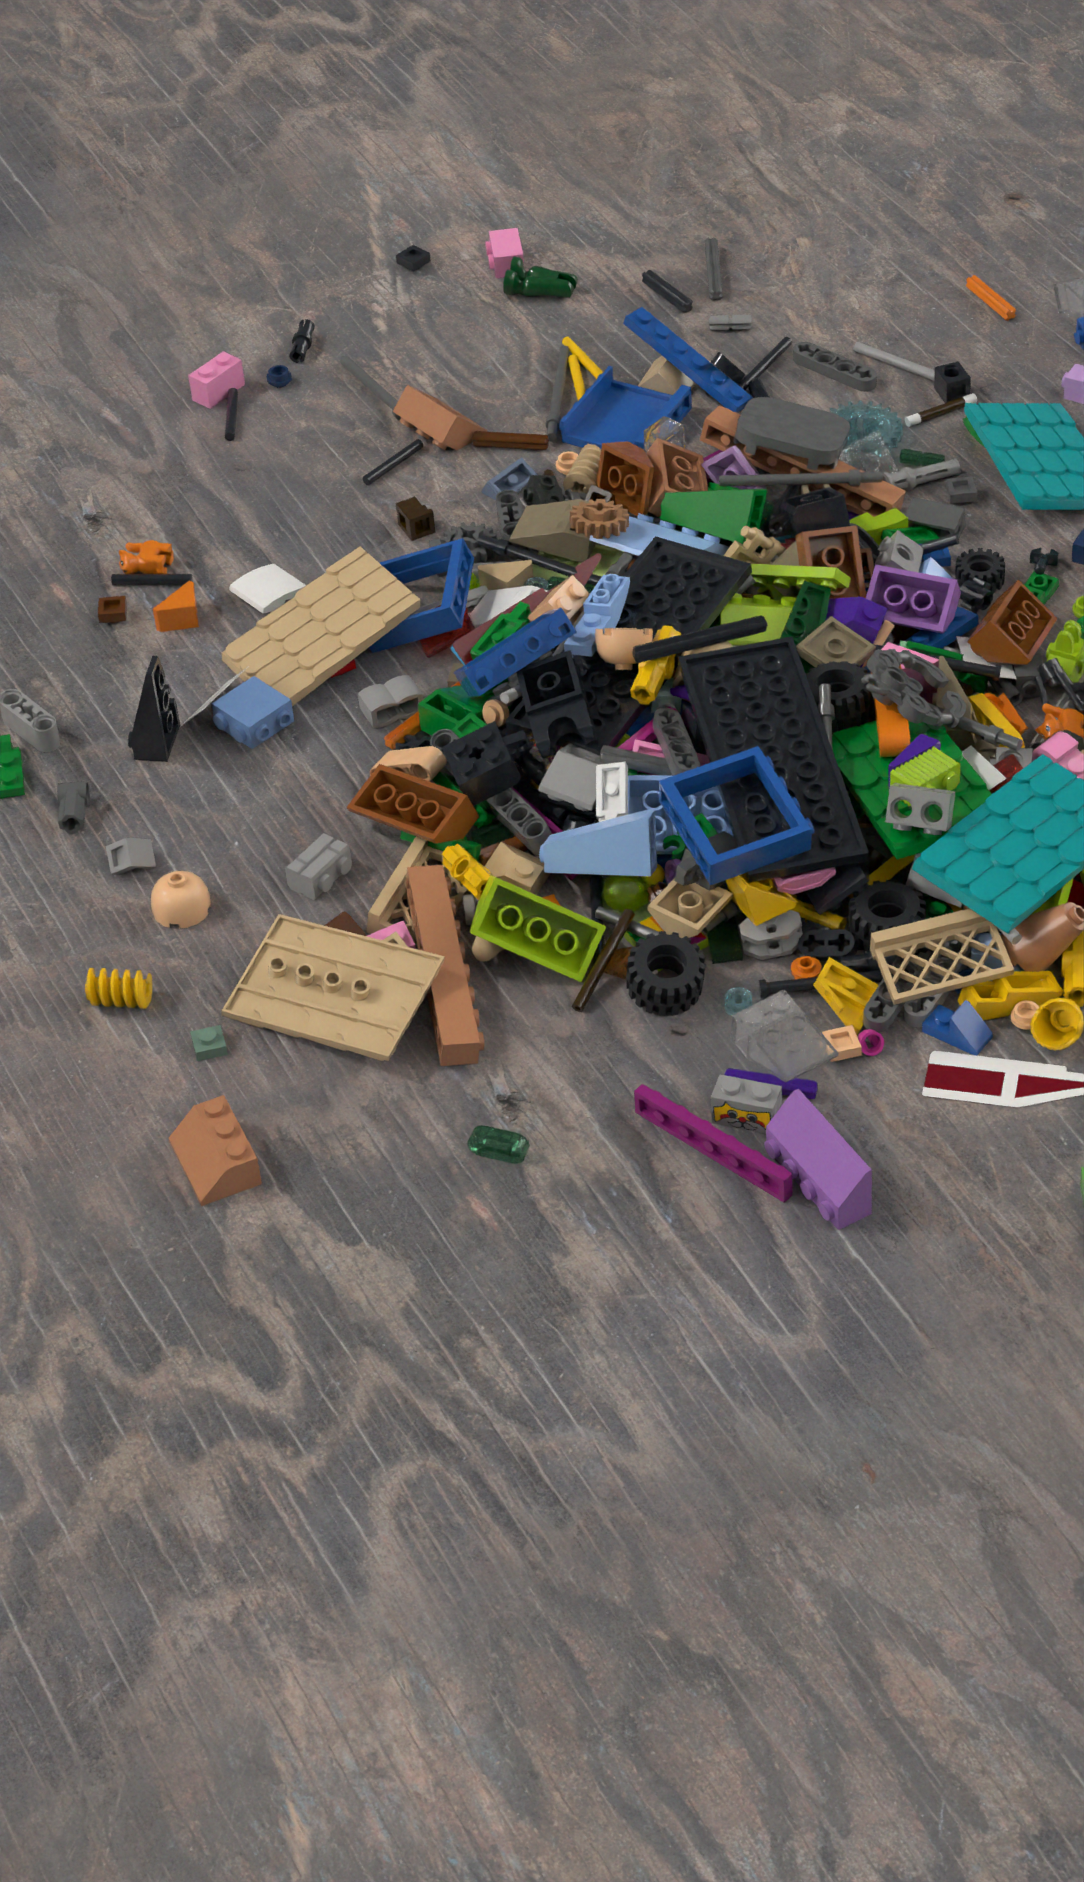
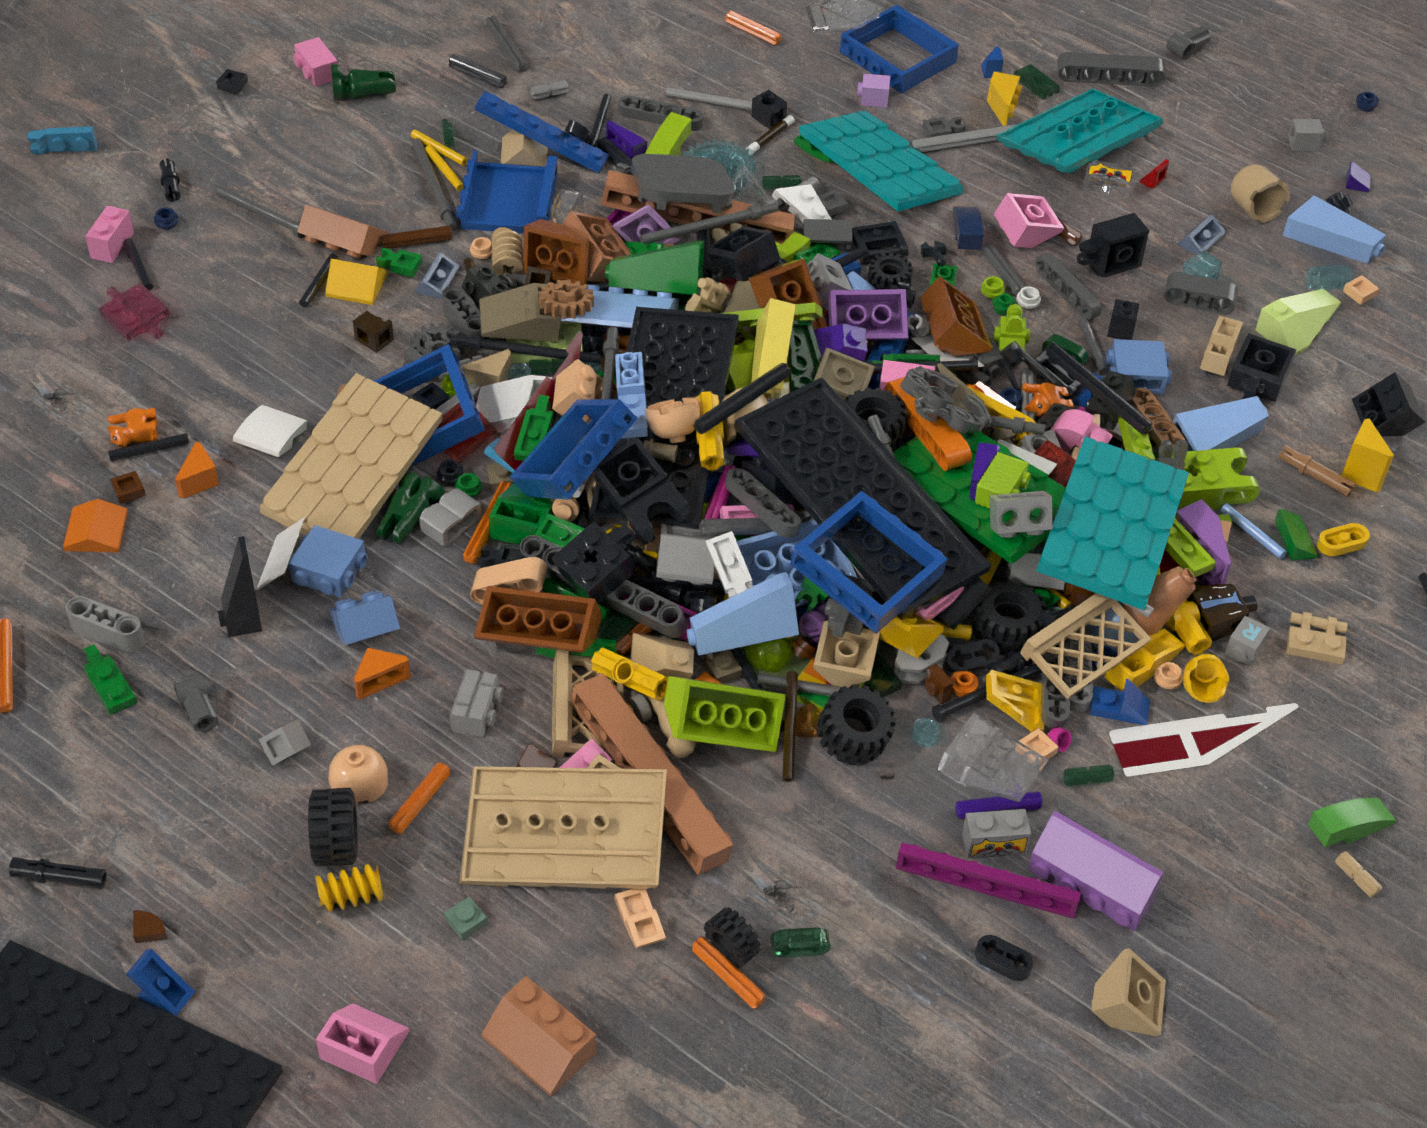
camera: 30 degrees left, 5 degrees up
(57, 1110) = (360, 1041): none -> bright pink slope
(68, 638) = (95, 527): none -> orange slope
(125, 930) = (333, 827): none -> black tyre
(203, 456) = (134, 312): none -> clear pink plate
(221, 285) = (62, 140): none -> dark azure hinge
(224, 934) = (419, 798): none -> orange axle
(246, 819) = (379, 671): none -> orange slope
(259, 769) = (365, 617): none -> medium blue slope
(344, 690) = (407, 506): none -> dark green piece
(364, 1084) = (639, 917): none -> light nougat slope
(415, 662) = (449, 471): none -> black plate
(418, 1151) = (728, 972): none -> orange axle
(425, 469) = (354, 281): none -> yellow slope
(426, 678) = (469, 484): none -> green plate
(431, 1119) = (732, 936): none -> black tyre
(432, 590) = (431, 396): none -> black plate
(481, 462) = (402, 263): none -> green plate
(575, 895) = (723, 666): none -> dark tan plate
(594, 672) = (661, 451): none -> dark tan pin
(597, 343) = (447, 133): none -> clear green bar
(692, 1210) = (1004, 957): none -> black beam
(773, 595) = (772, 340): none -> light yellow slope
(775, 960) = (938, 684): none -> reddish brown plate
(776, 384) = (626, 140): none -> dark purple slope
(789, 1276) = (1130, 995): none -> tan slope
(826, 389) = (670, 135): none -> lime slope
(888, 1083) = (1082, 775): none -> clear green piece
(925, 480) = (802, 201): none -> white wing
(964, 622) = (918, 326): none -> light grey pin
(990, 531) = (879, 236): none -> black plate
(1033, 718) = (1012, 396): none -> dark blue plate

